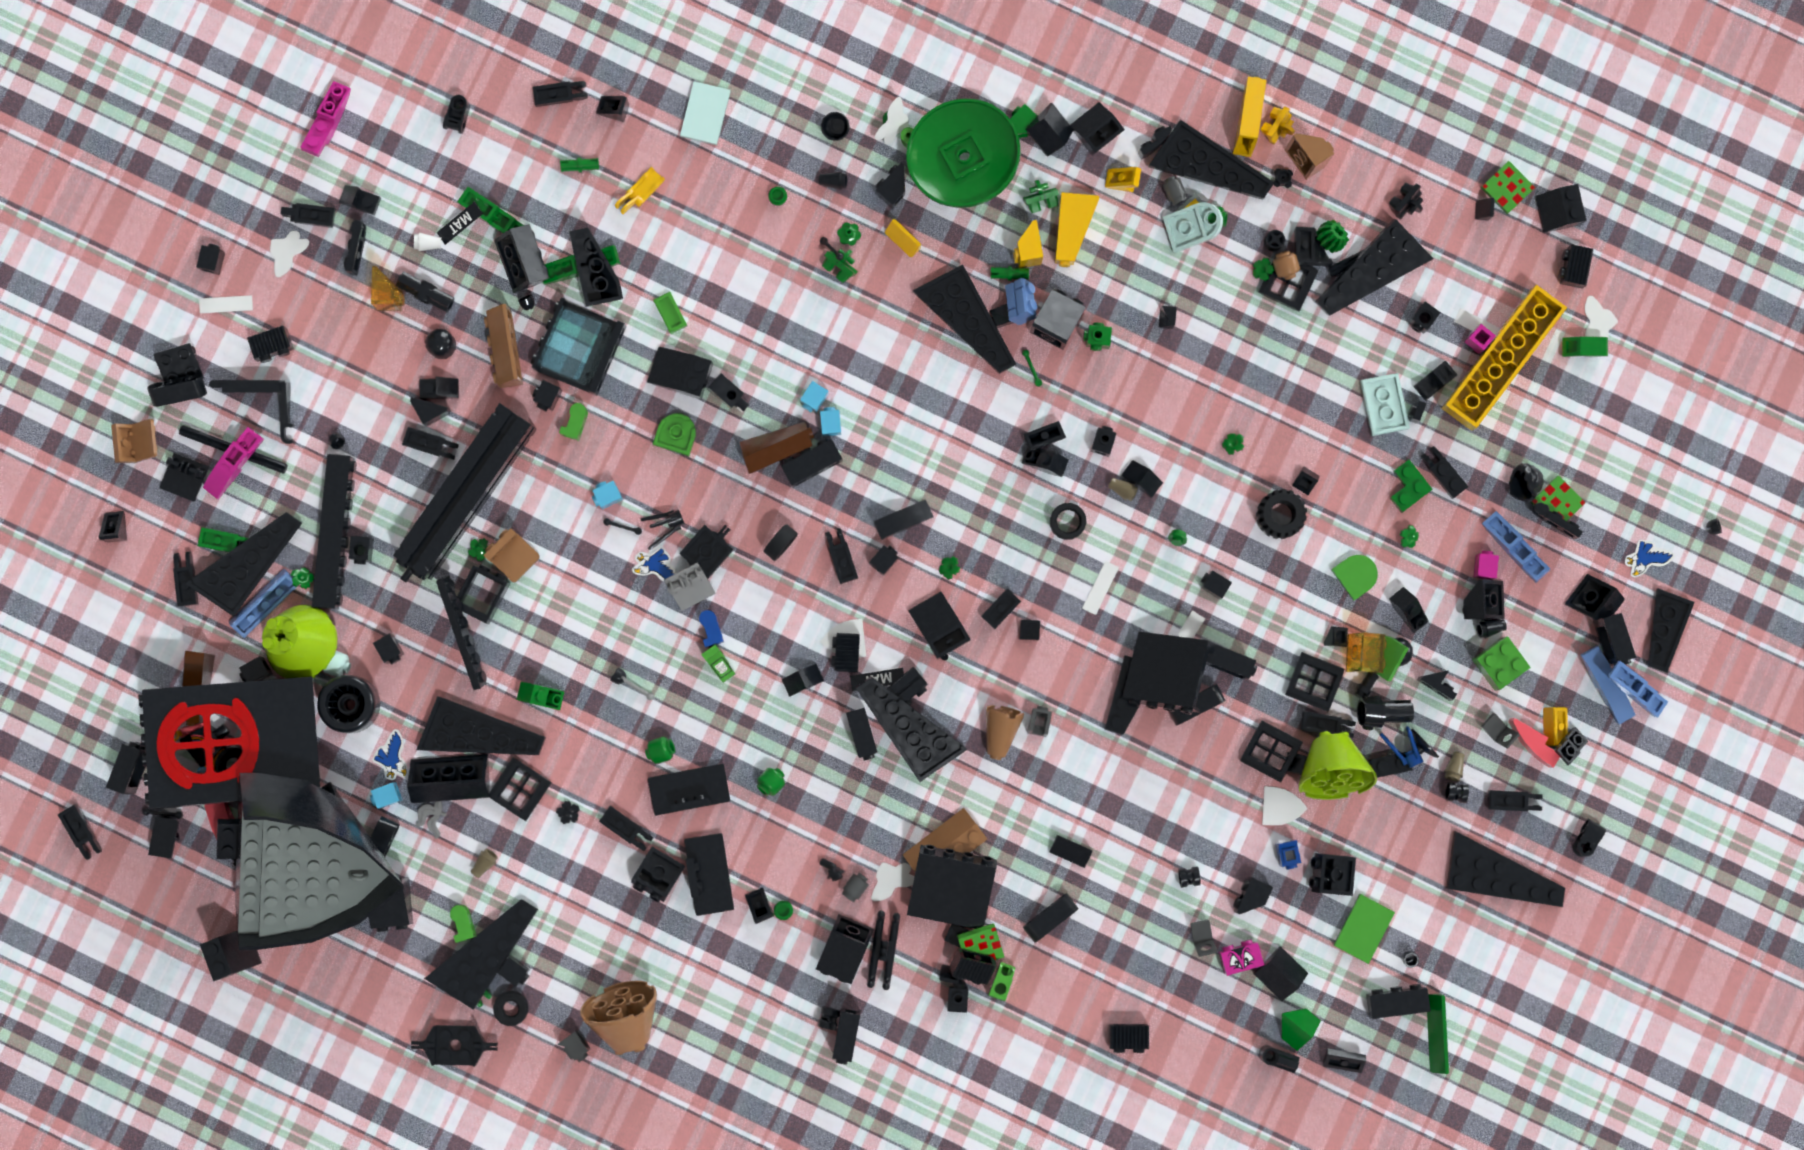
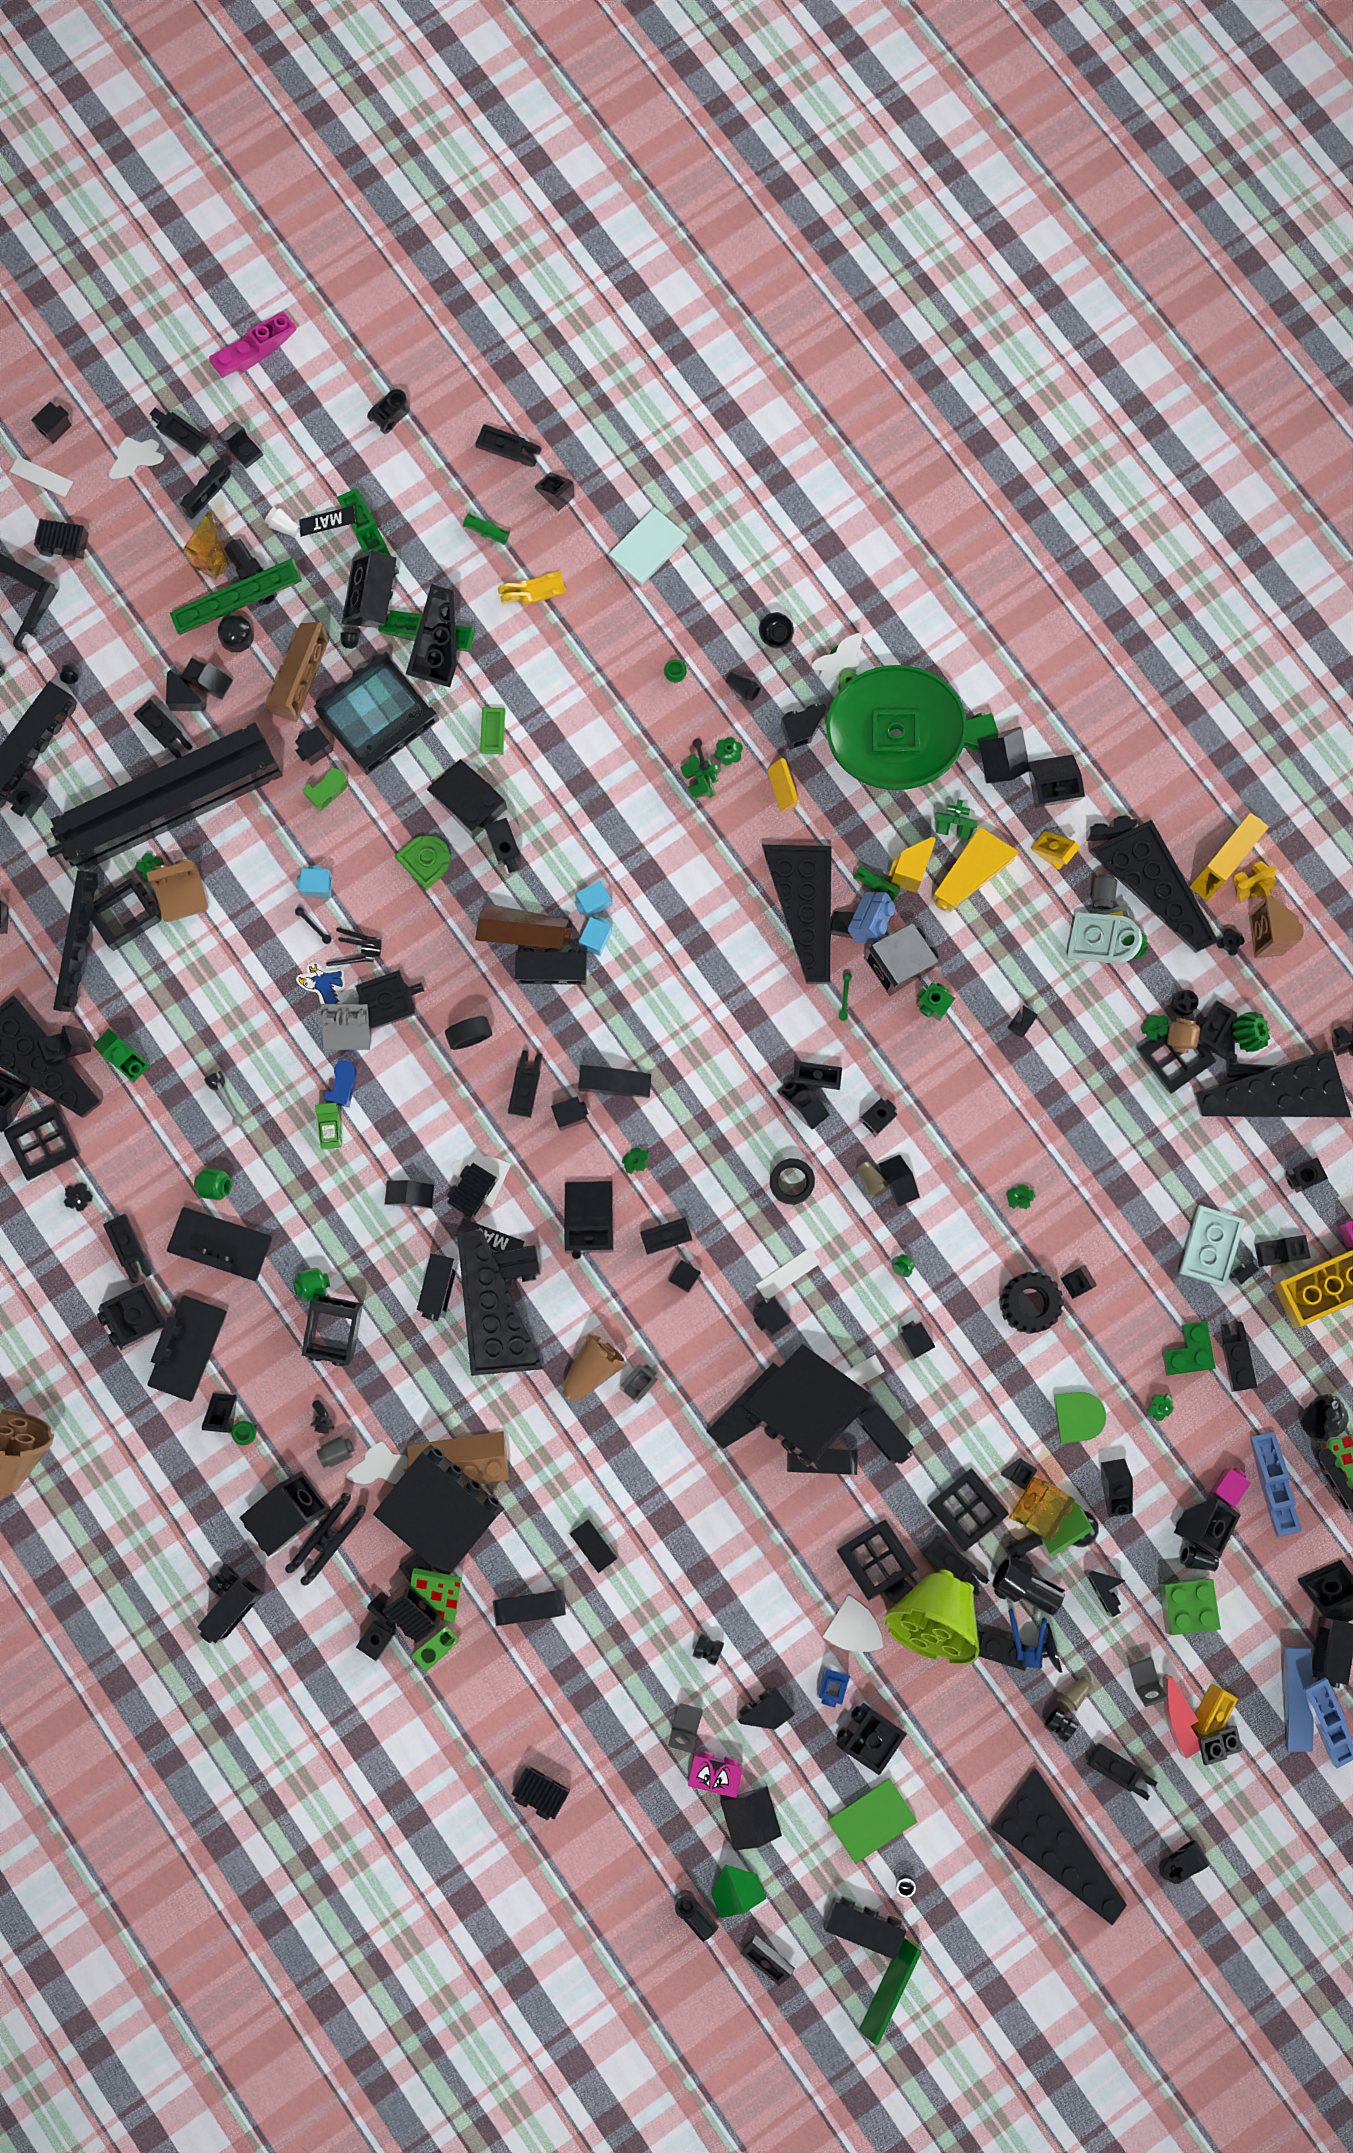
camera: 30 degrees right, 5 degrees down
(426, 316) = (236, 596): none -> green tile
(495, 711) = (67, 1044): none -> black slope
(800, 787) = (334, 1307): none -> black window
(1105, 624) = (770, 1316): none -> black brick

